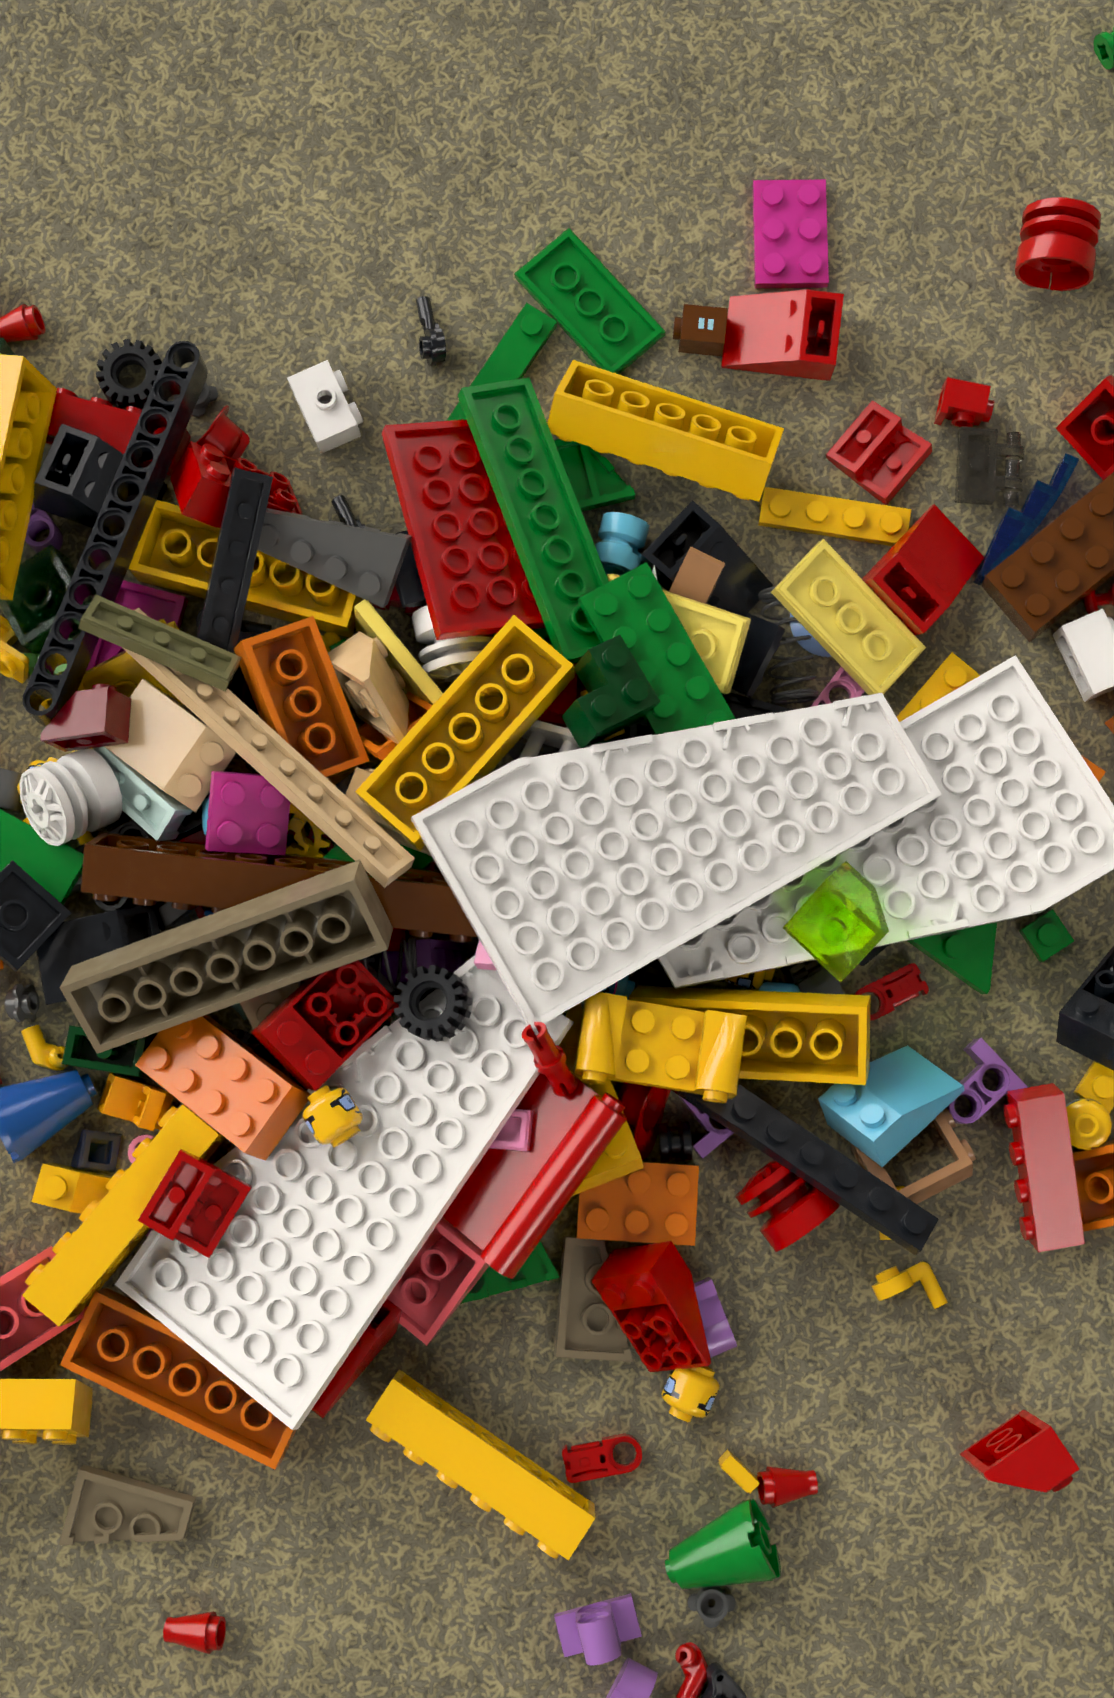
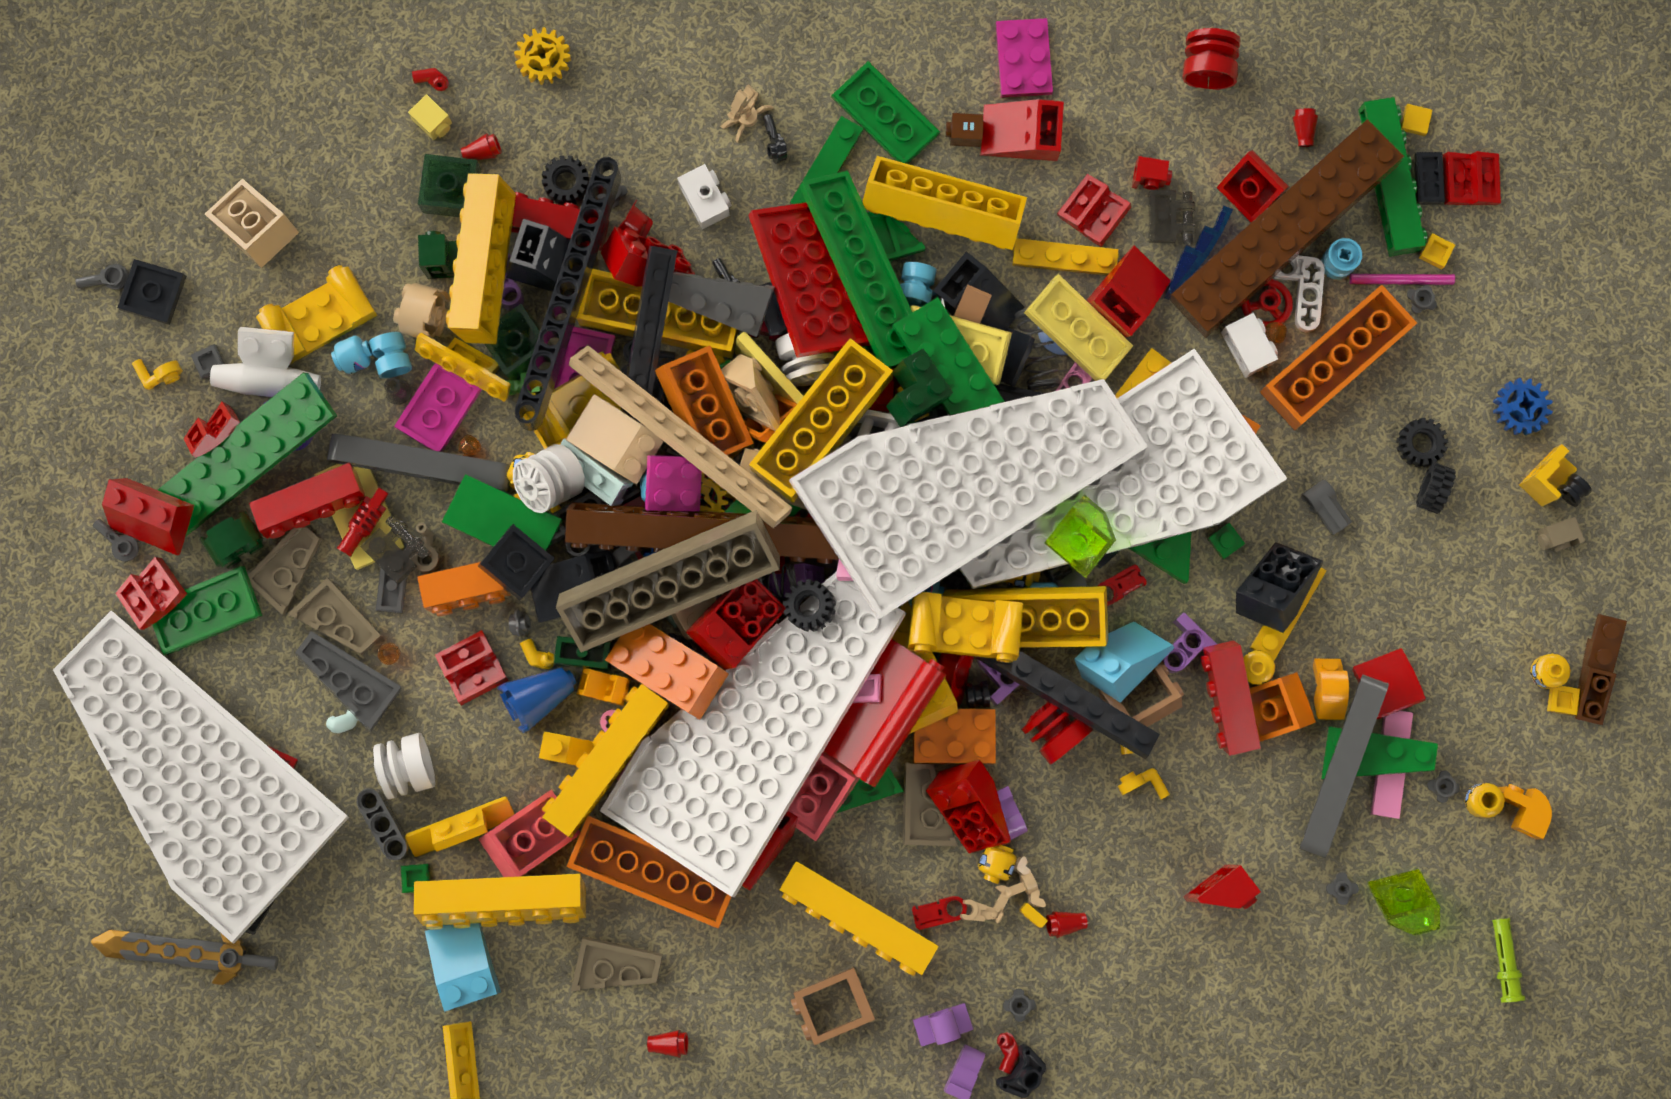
camera: 10 degrees left, 0 degrees up
(90, 720) = (560, 425): dark red slope -> none
(97, 1151) = (577, 723): slope -> none
(128, 203) = (531, 59): none -> yellow gear
(159, 642) = (606, 369): olive tile -> none
(195, 1203) = (655, 750): red slope -> none
(332, 1116) = (745, 685): yellow head -> none
(388, 286) = (744, 111): none -> tan piece
(478, 1578) = (800, 1007): none -> medium nougat window
(549, 1059) = (892, 637): red pin -> none
(664, 1464) = (1027, 883): none -> tan piece
(726, 1551) = (1027, 968): green cone -> none

